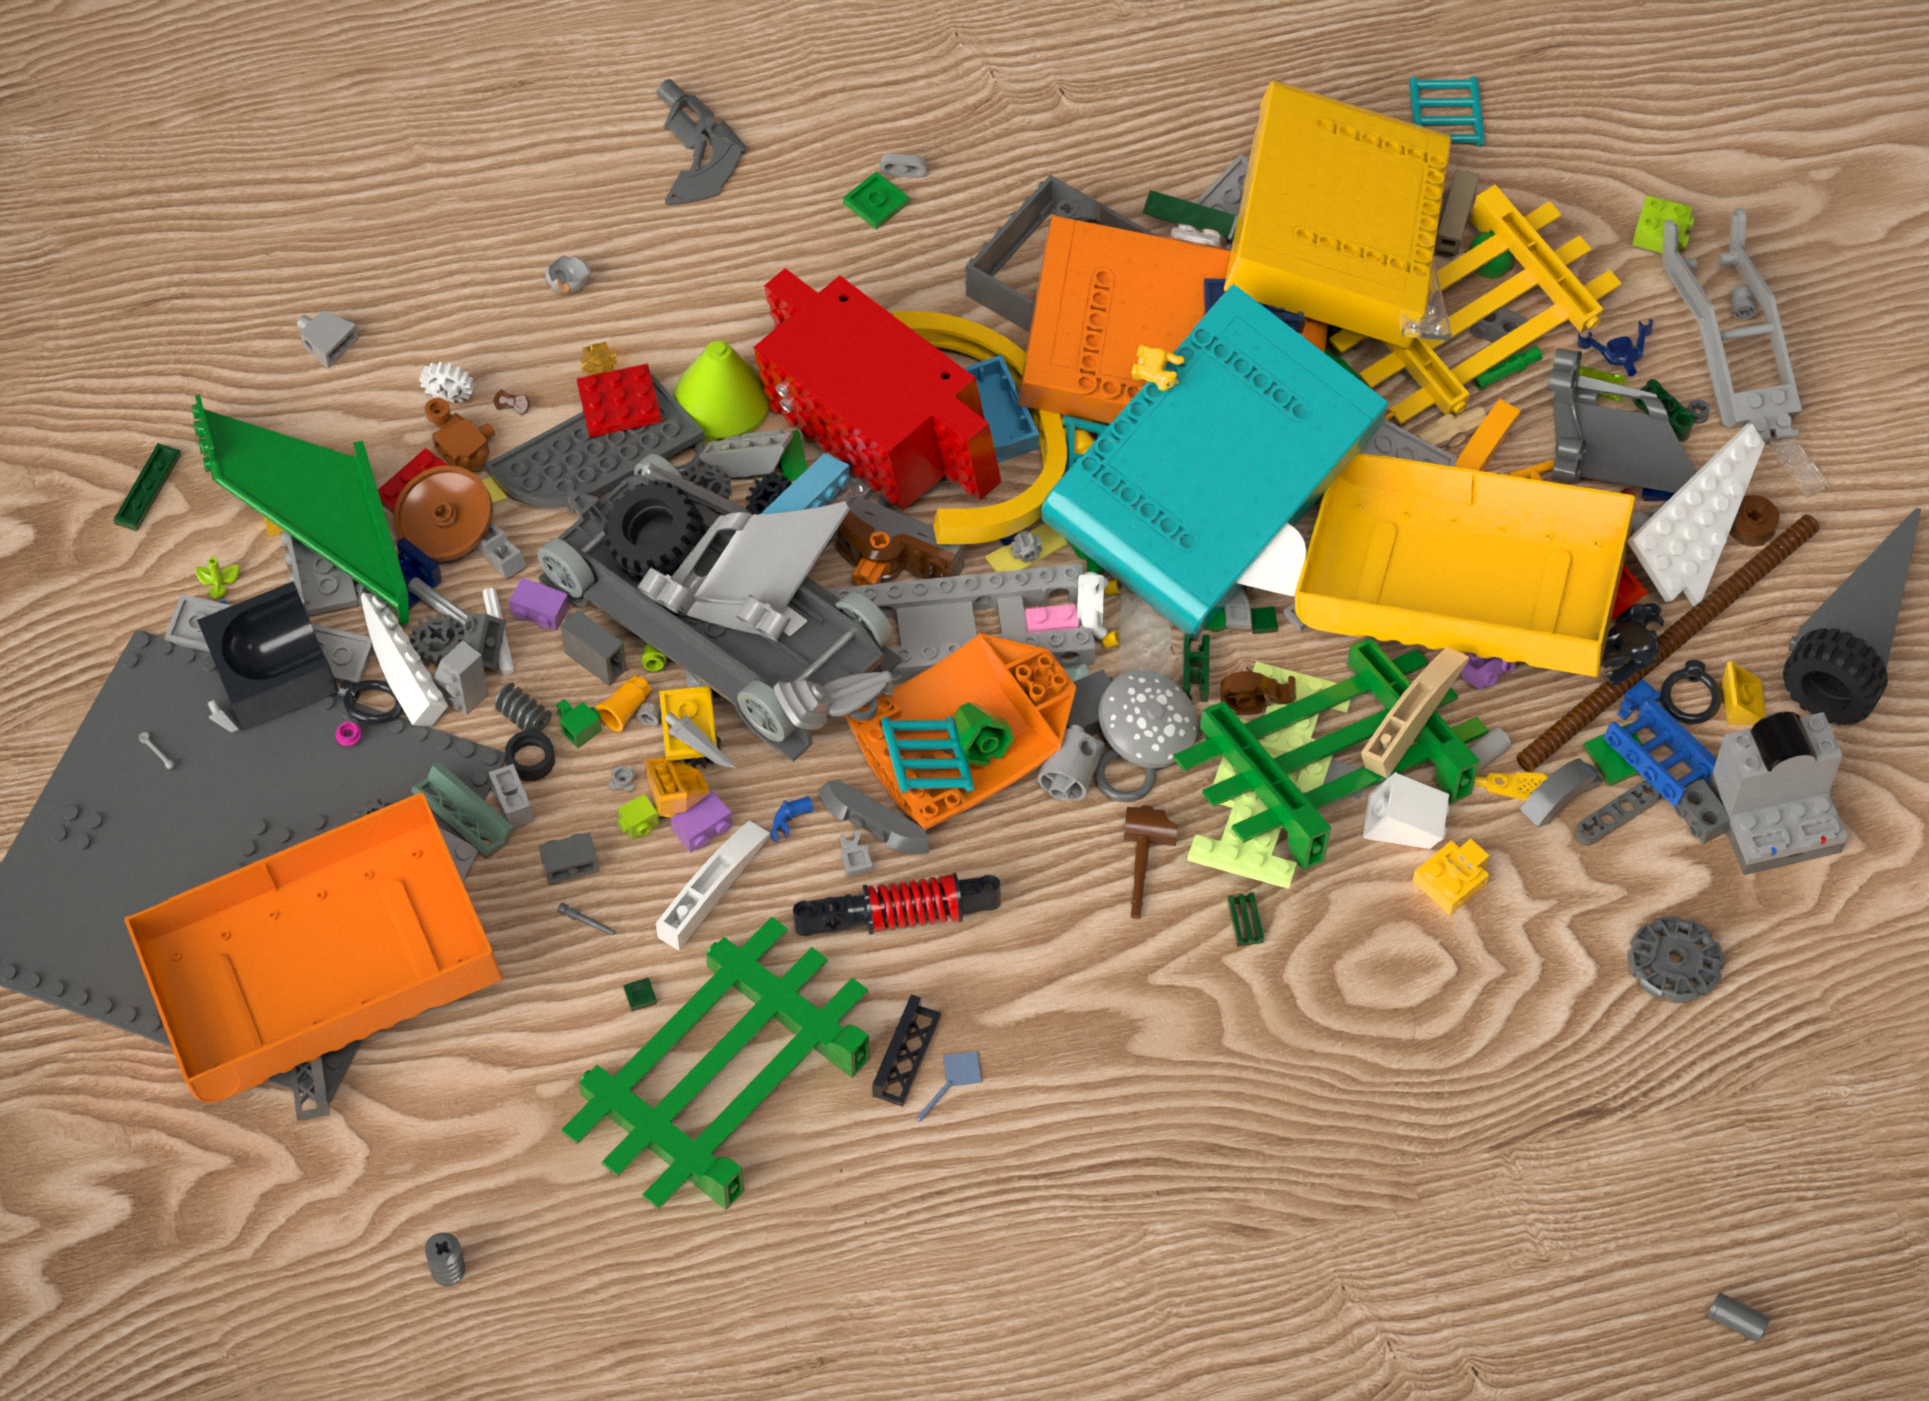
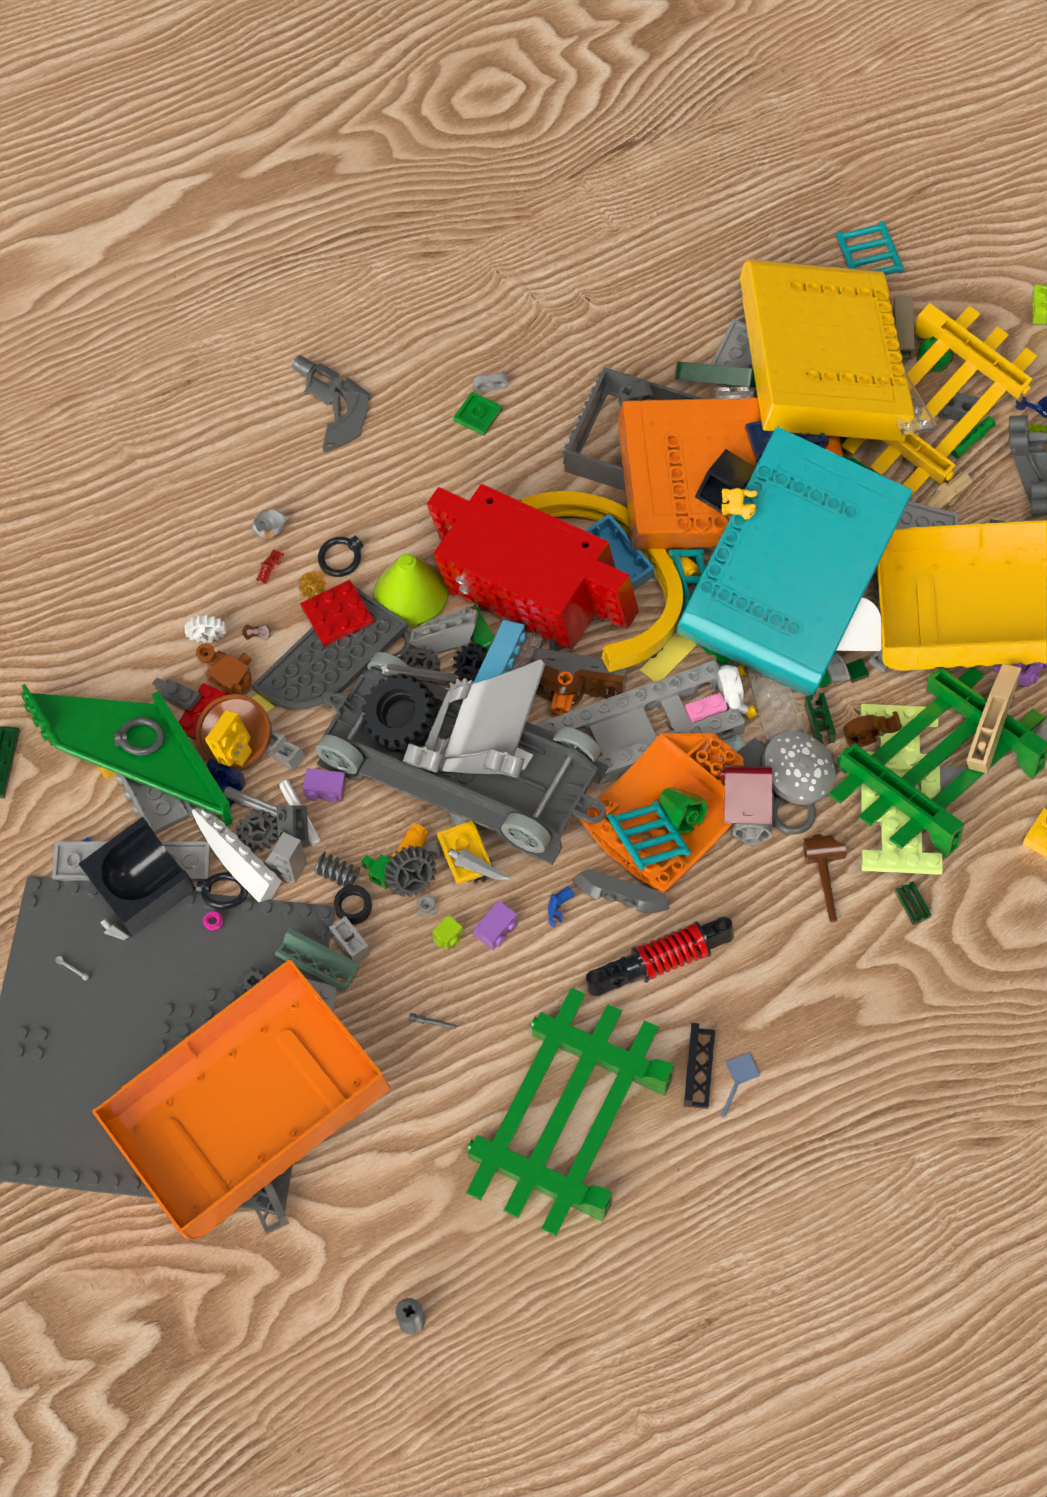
camera: 10 degrees left, 5 degrees up
(214, 576) = (77, 820): lime plant -> none
(298, 489) = (120, 736): none -> dark grey piece
(327, 336) = (103, 613): light grey torso -> none
(388, 453) = (177, 693): none -> dark grey hinge
(432, 518) = (229, 740): none -> yellow piece
(550, 324) = (268, 565): none -> clear red piece
(569, 858) = (406, 977): dark grey brick -> none
(593, 647) = (376, 809): dark grey brick -> none
(599, 743) = (410, 871): none -> dark grey gear
(639, 994) = (489, 1070): dark green tile -> none
(653, 659) = (421, 807): lime cone -> none
(668, 325) = (354, 545): none -> black piece
(674, 785) = (468, 903): light orange wedge -> none
(709, 885) = (517, 972): white slope -> none
(810, 703) = (558, 819): light grey piece -> none
(855, 857) = (616, 925): light grey plate -> none
(1026, 546) = (670, 655): light grey gear -> none
(1065, 731) = (747, 794): none -> door
(1157, 328) = (726, 473): none -> black slope
(1406, 813) = (1004, 794): white slope -> none
(1488, 437) = (976, 495): light orange slope -> none
(1534, 471) = (1014, 512): light orange piece -> none

